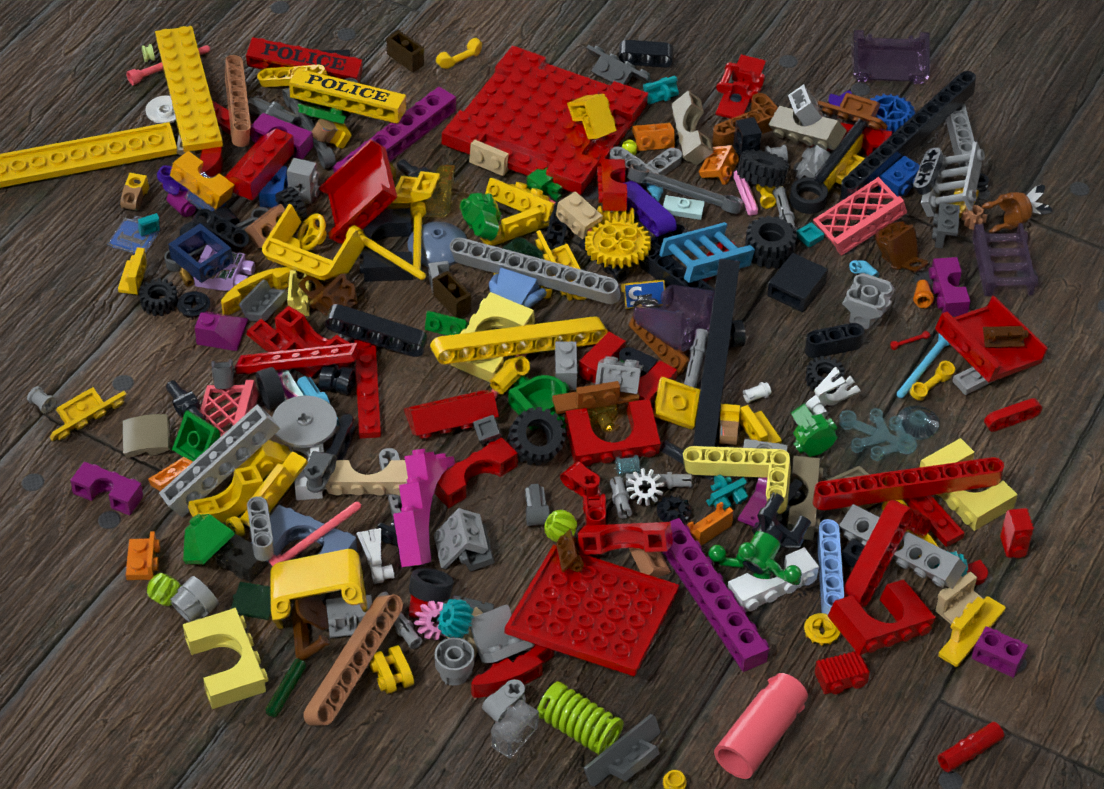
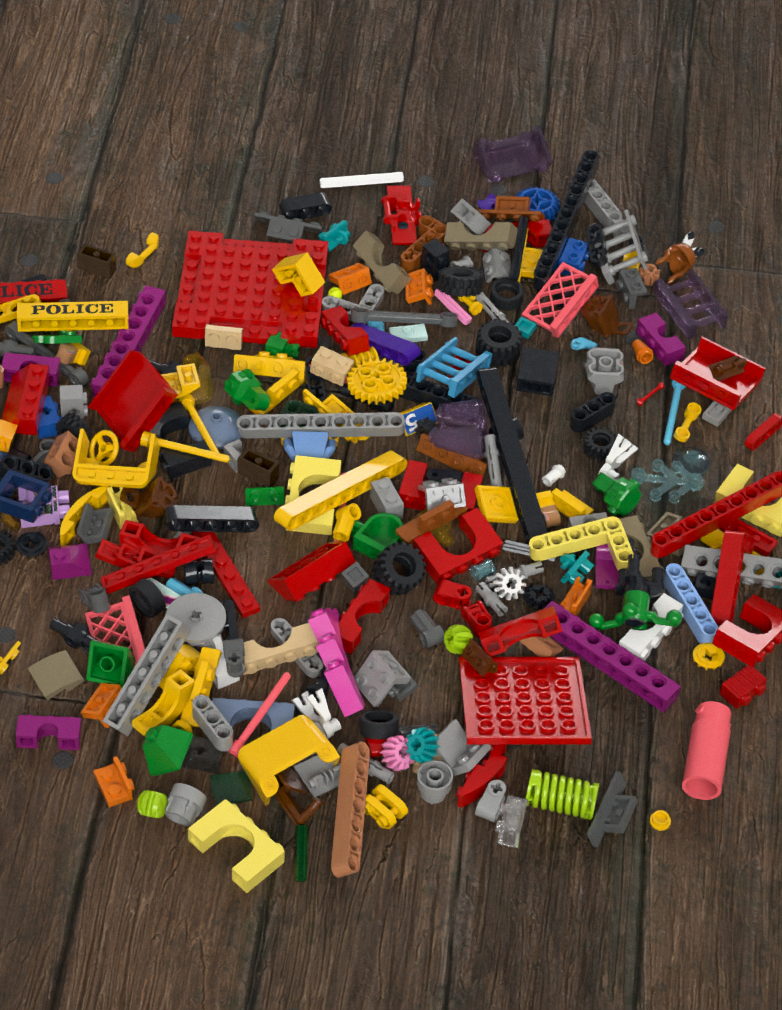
camera: 25 degrees left, 0 degrees up
(720, 42) = (357, 180): none -> white axle

